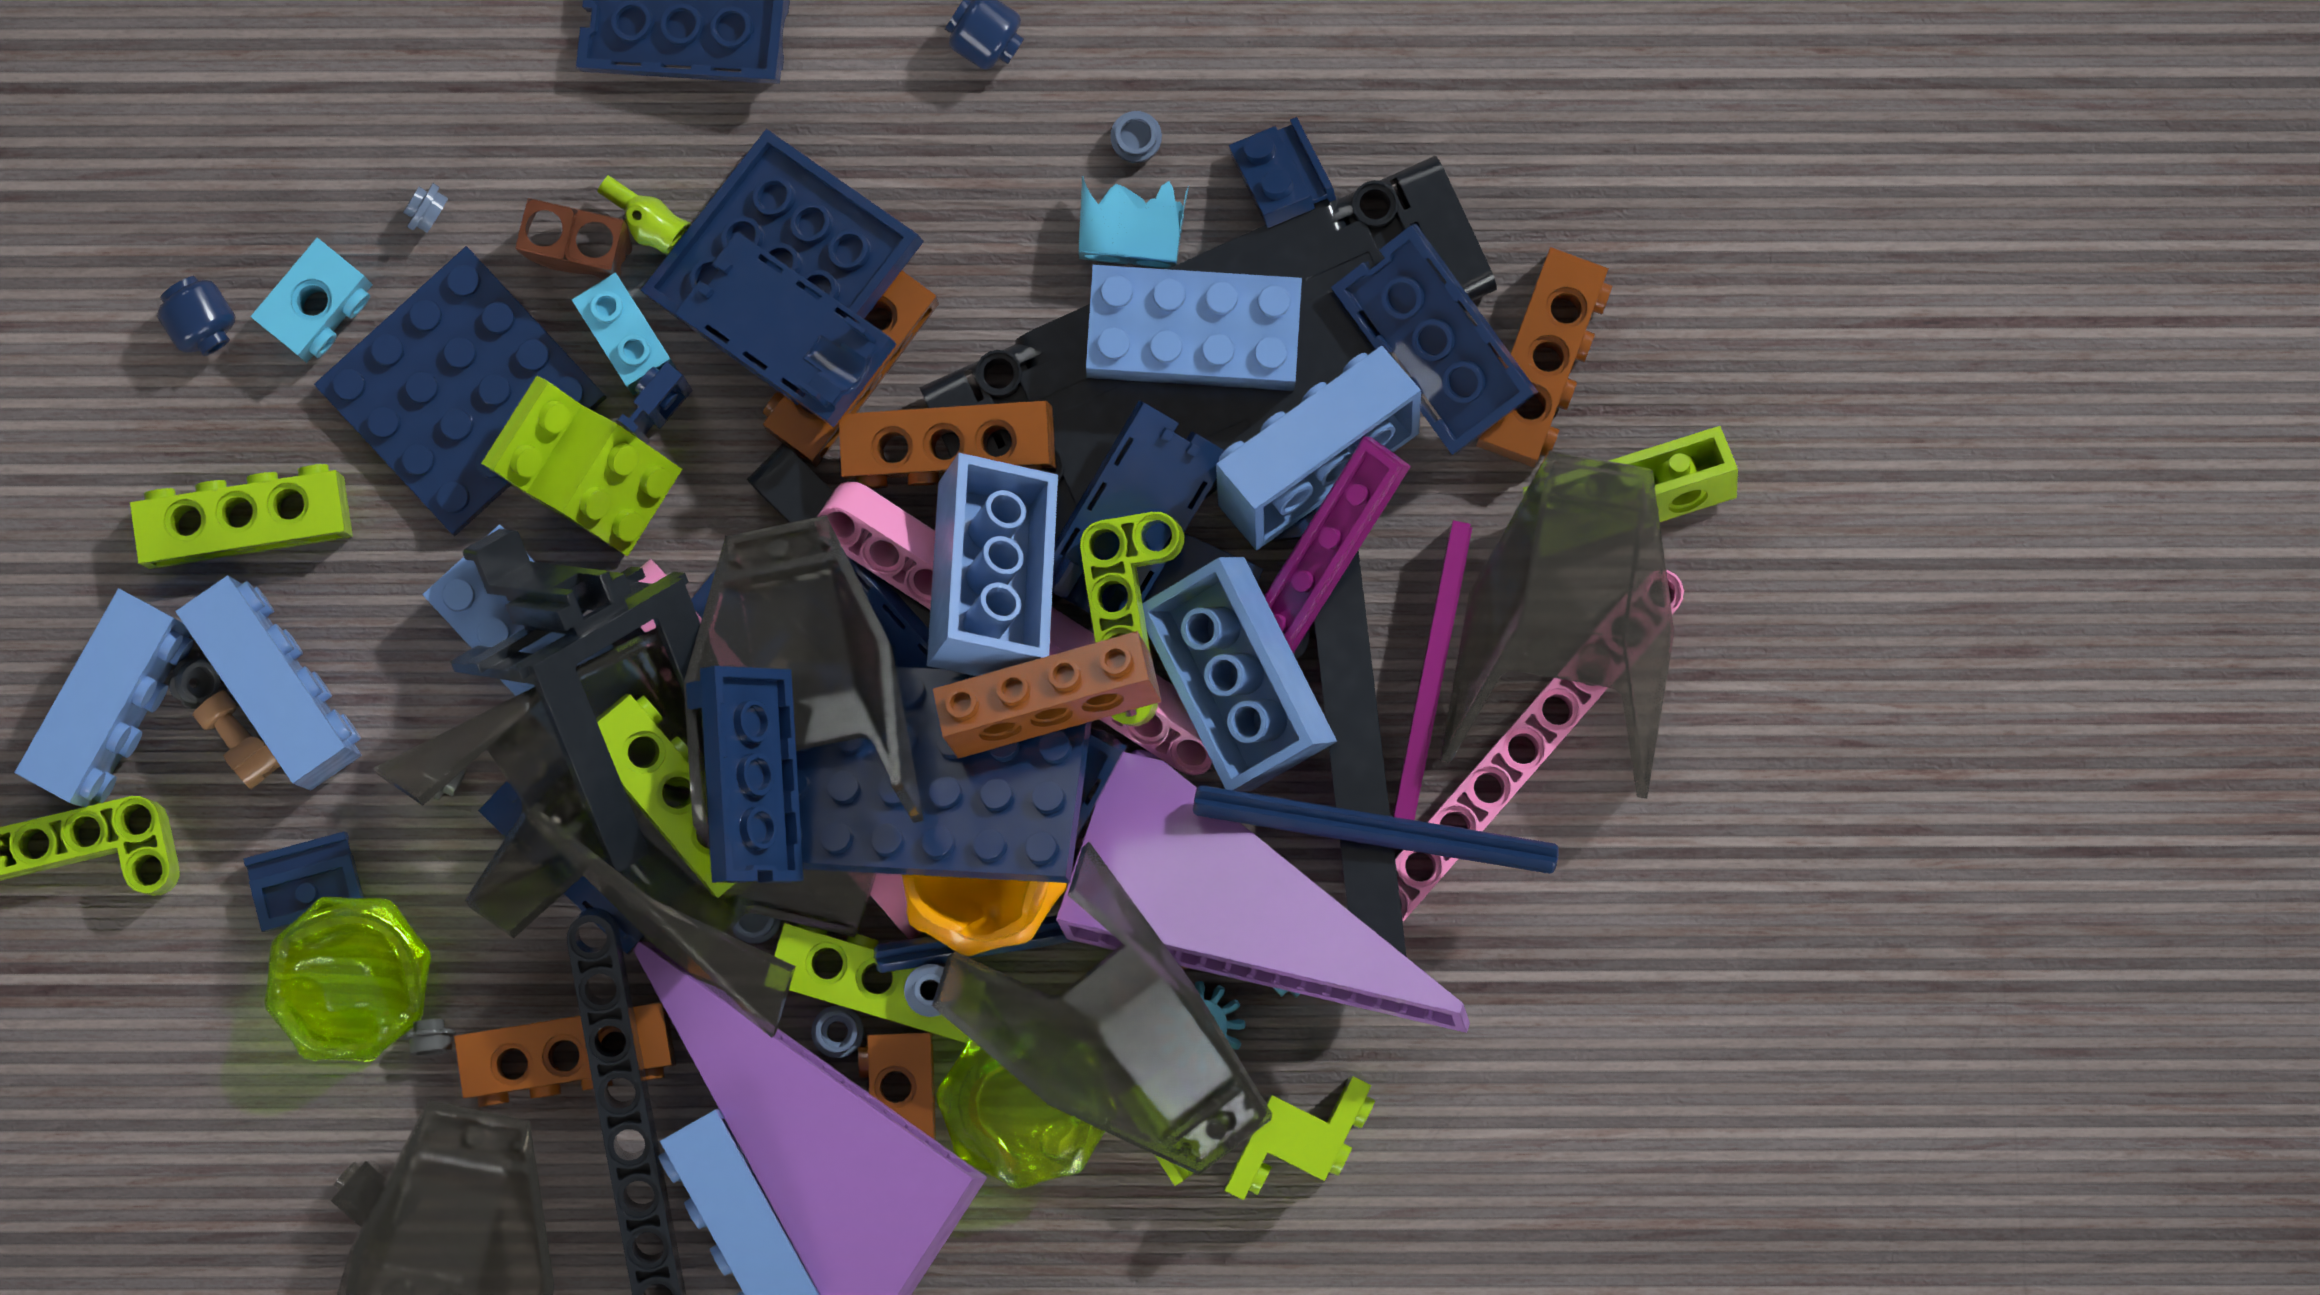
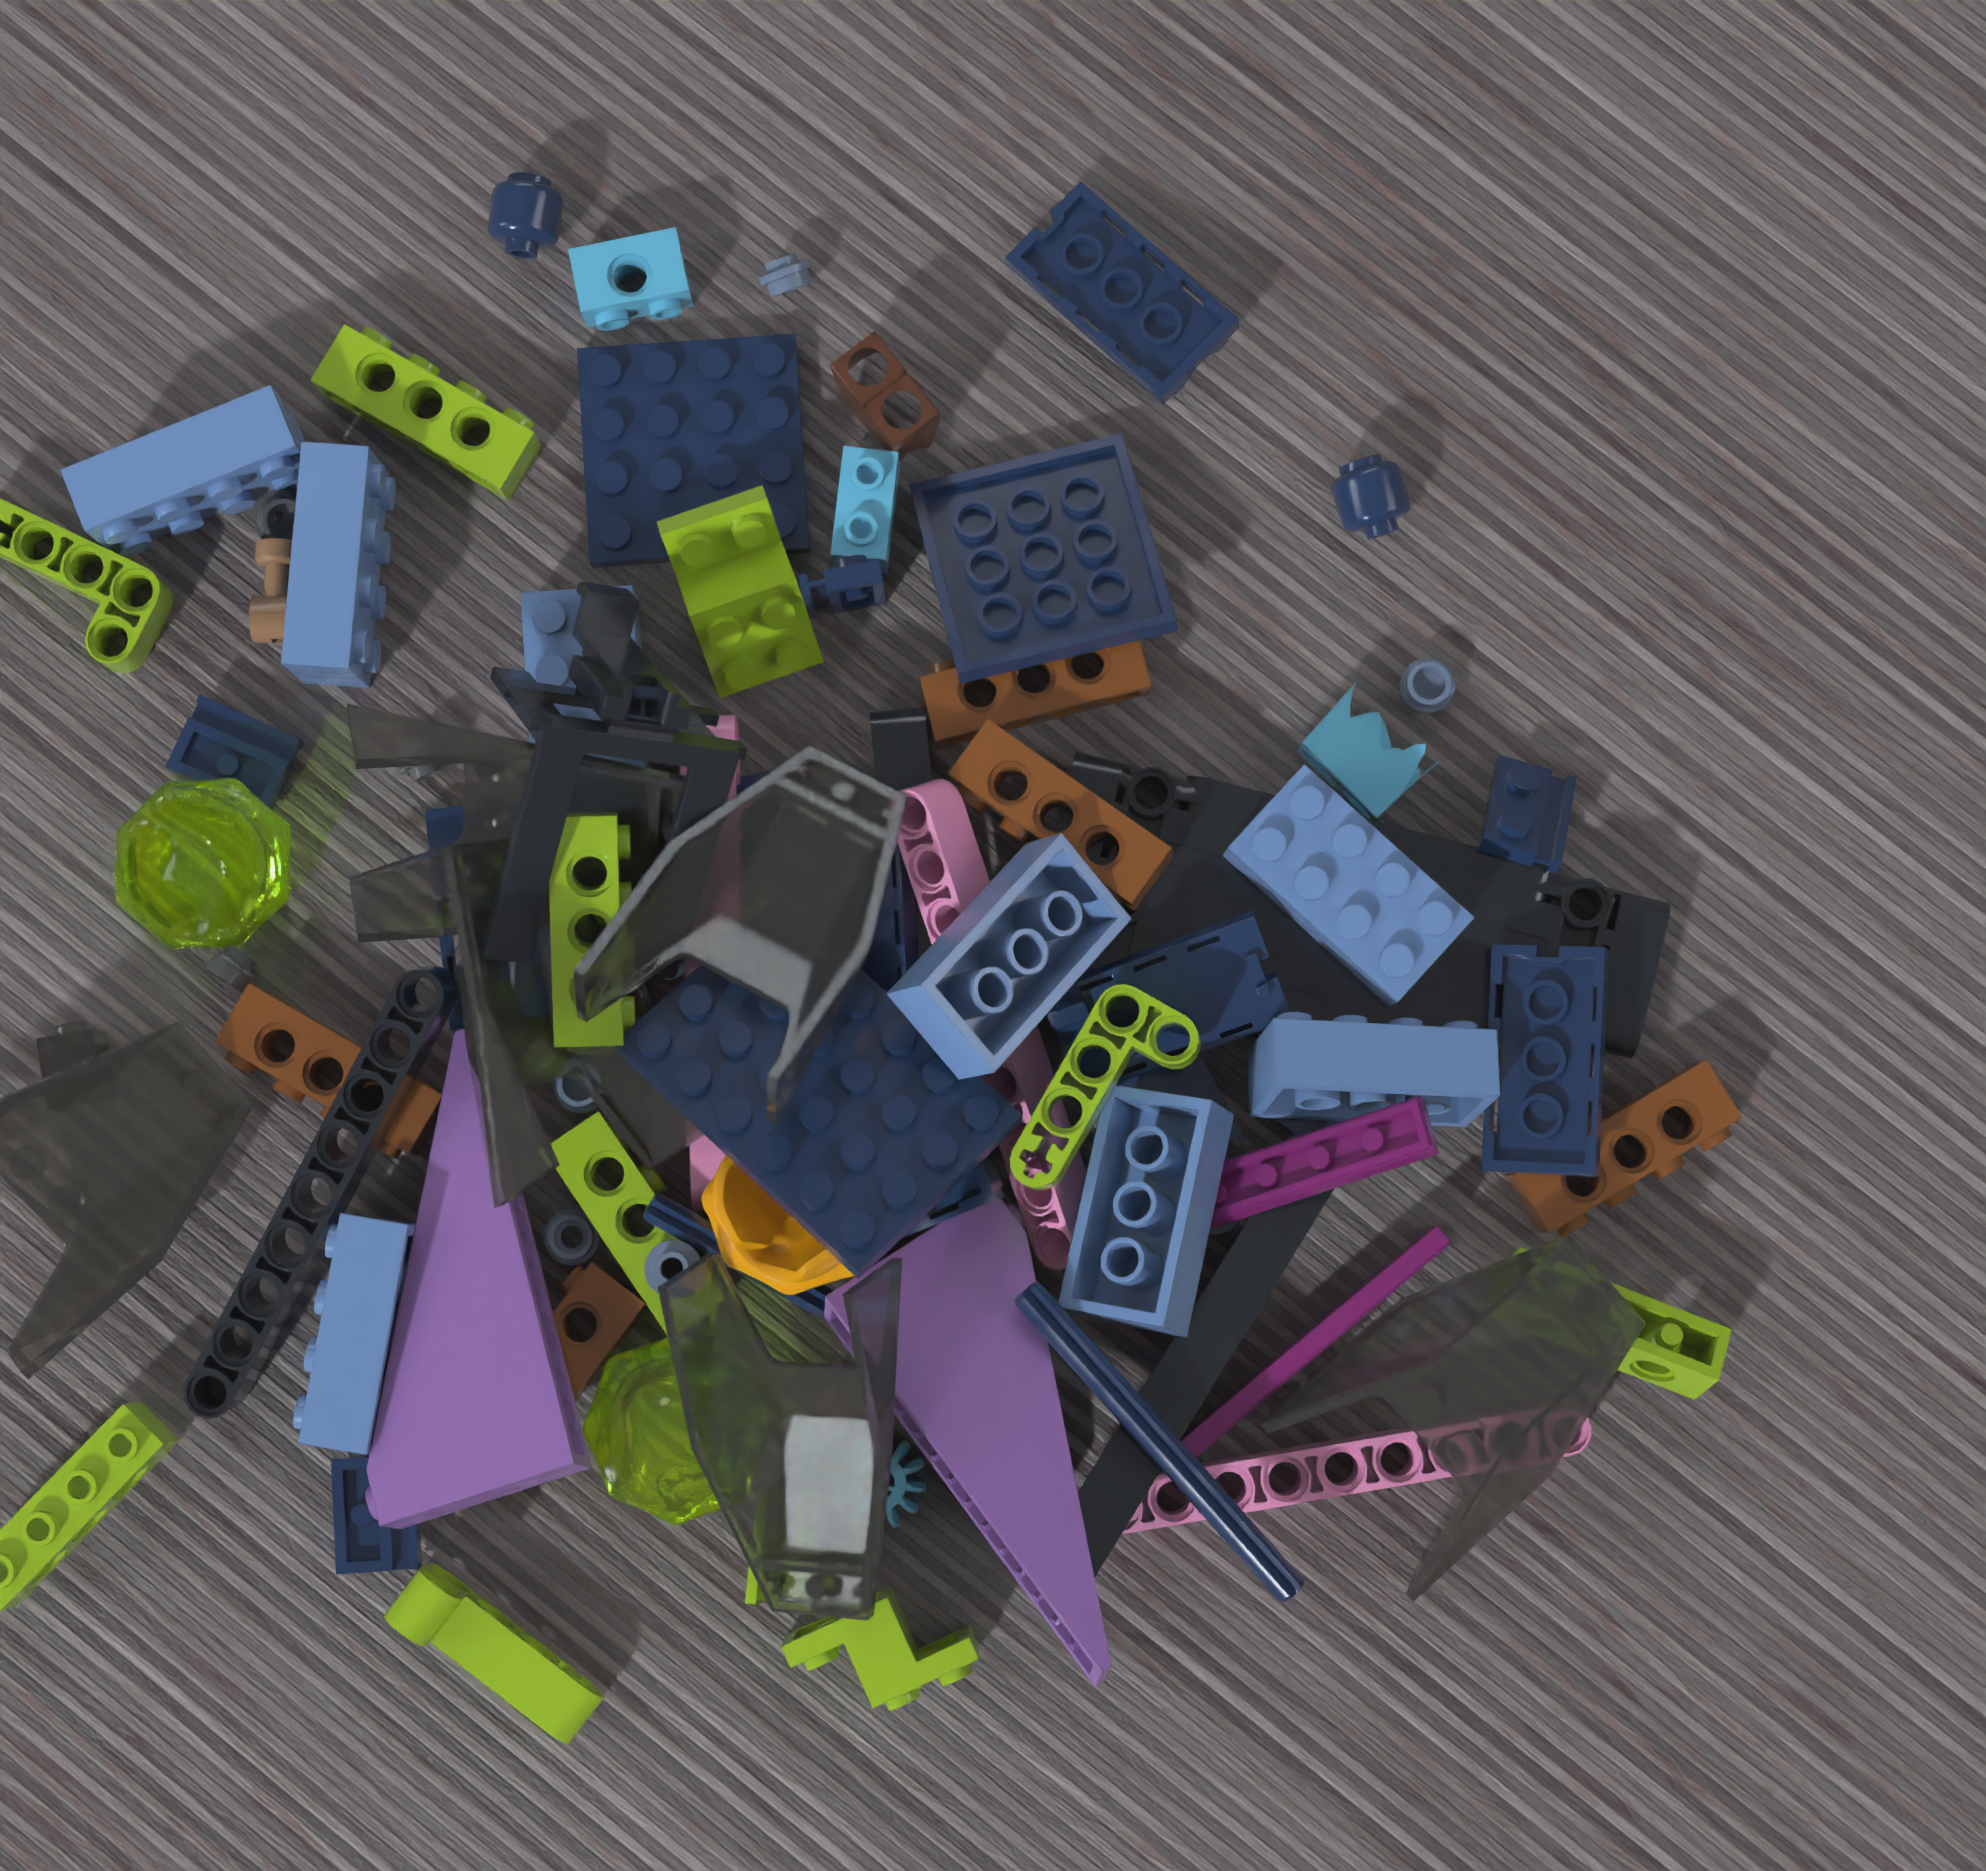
camera: 35 degrees right, 0 degrees up
(646, 216) = (962, 427): lime piece -> none
(750, 773) = (661, 965): dark blue piece -> none
(786, 329) = (1002, 613): dark blue piece -> none
(1047, 695) = (968, 1101): dark orange brick -> none

